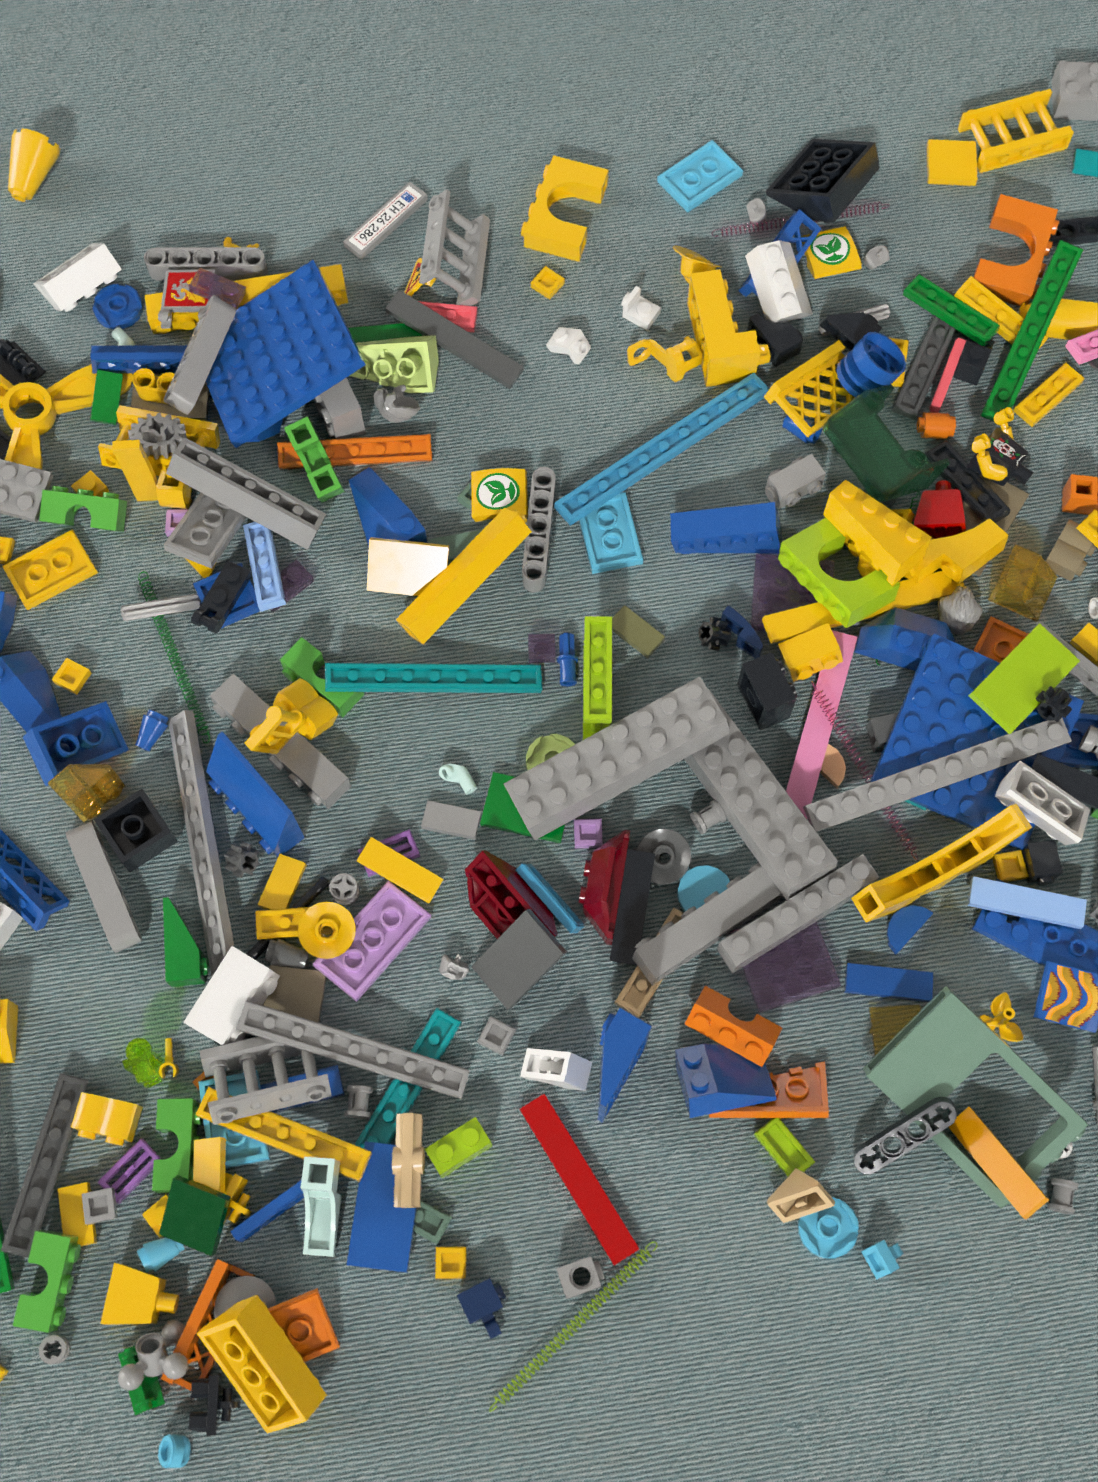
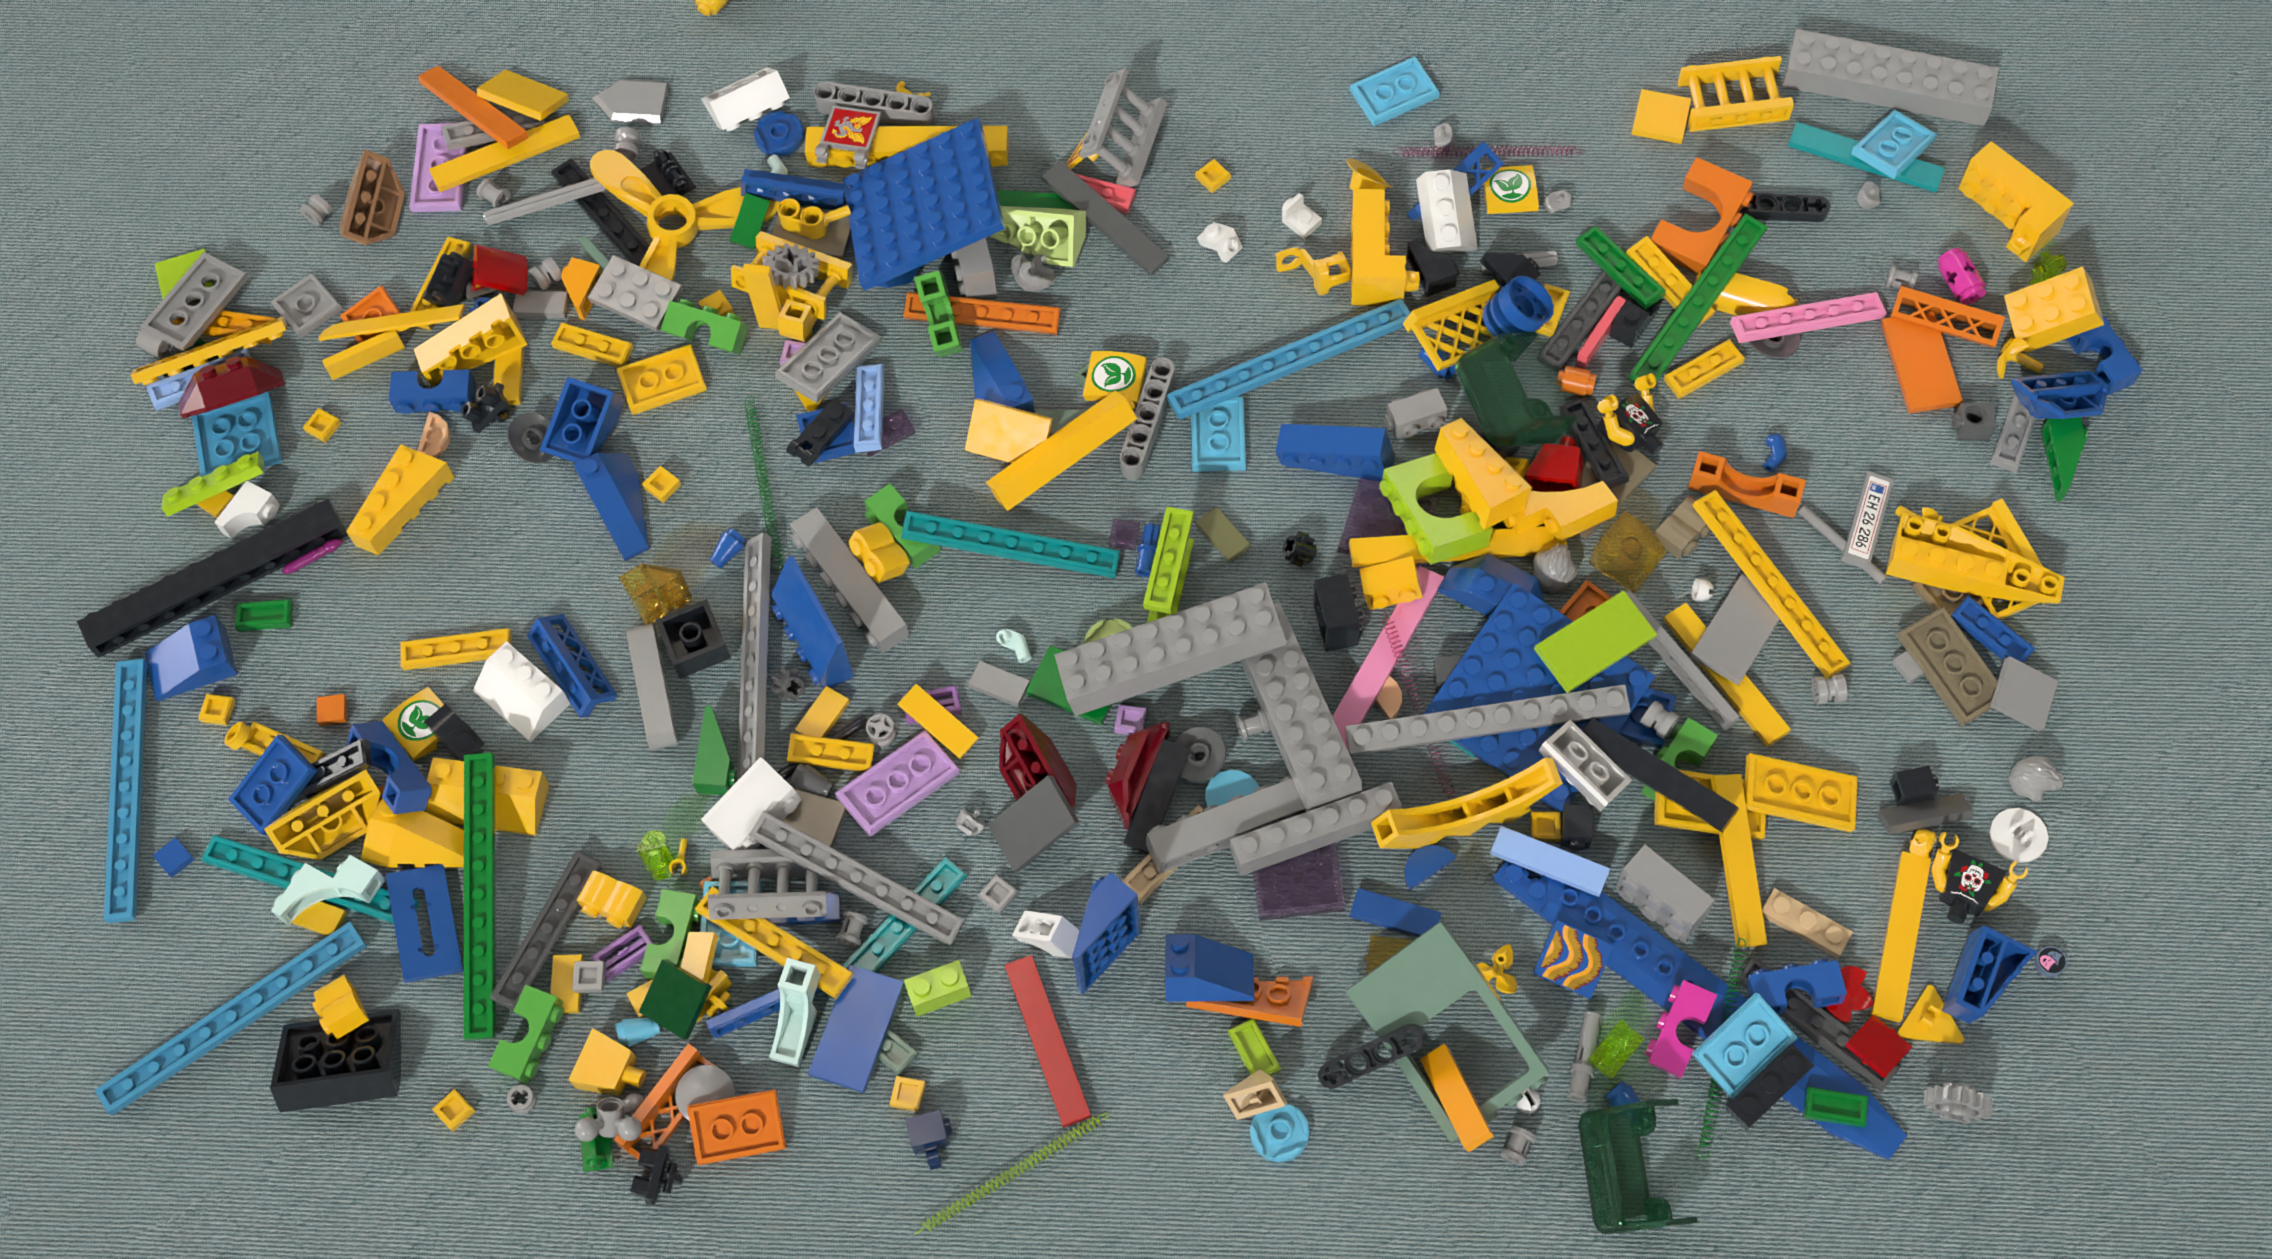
camera: 15 degrees right, 5 degrees down
(78, 738) = (653, 541): blue slope -> none
(160, 607) = (759, 432): light grey axle -> none
(174, 1451) = (611, 1208): medium azure tile -> none
(200, 355) = (847, 194): light grey beam -> none
(209, 284) = (878, 132): plate -> none
(245, 493) = (864, 335): light grey brick -> none
(263, 1365) = (710, 1144): yellow slope -> none
(272, 737) = (840, 572): yellow plate -> none
(322, 916) = (852, 750): yellow dish -> none
(385, 220) = (1062, 88): tile -> none
(408, 1160) = (885, 987): tan piece -> none
(550, 898) = (1078, 773): dark azure tile -> none
(562, 180) = (1248, 75): yellow arch -> none
(566, 1272) = (1017, 1120): light grey brick -> none
(747, 637) = (1330, 557): dark blue slope -> none
(747, 1038) = (1242, 939): orange arch -> none
(825, 177) = (1521, 113): black slope -> none
(882, 1258) = (1324, 1168): medium azure tile -> none
(1053, 704) = (1617, 670): black gear -> none

